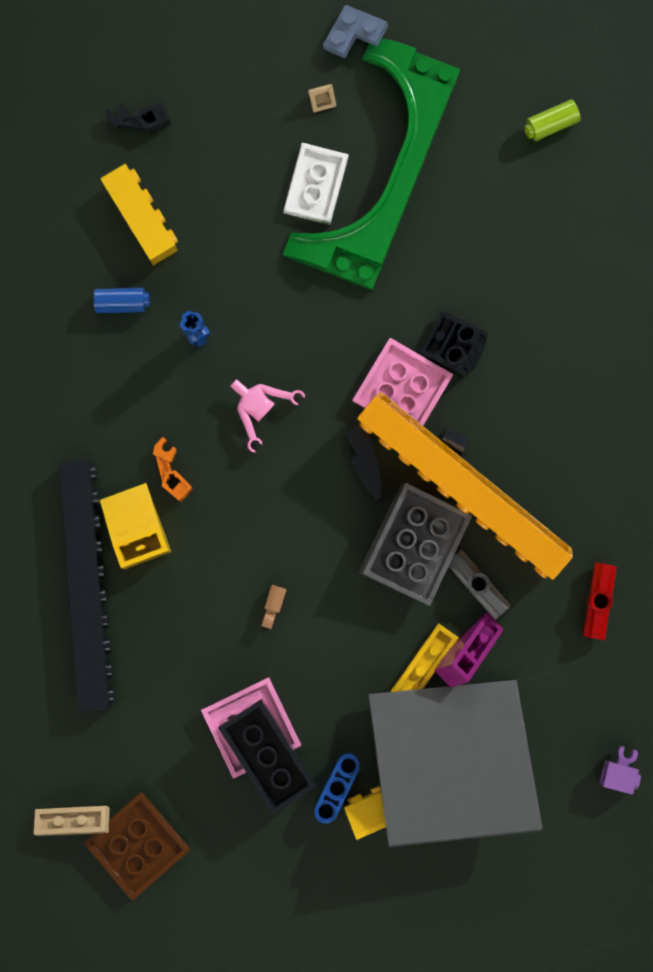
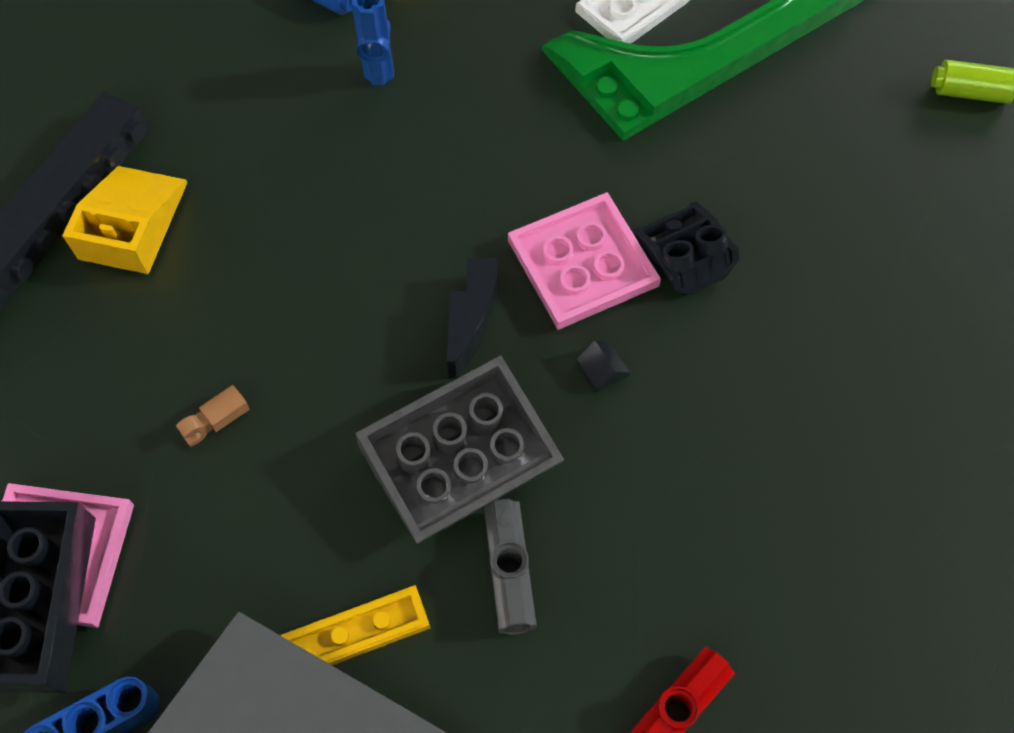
camera: 30 degrees right, 20 degrees down
(164, 460) = (222, 211): orange piece -> none
(258, 404) = (387, 174): bright pink piece -> none
(466, 485) = (583, 421): light orange brick -> none
(469, 651) = (429, 651): magenta slope -> none

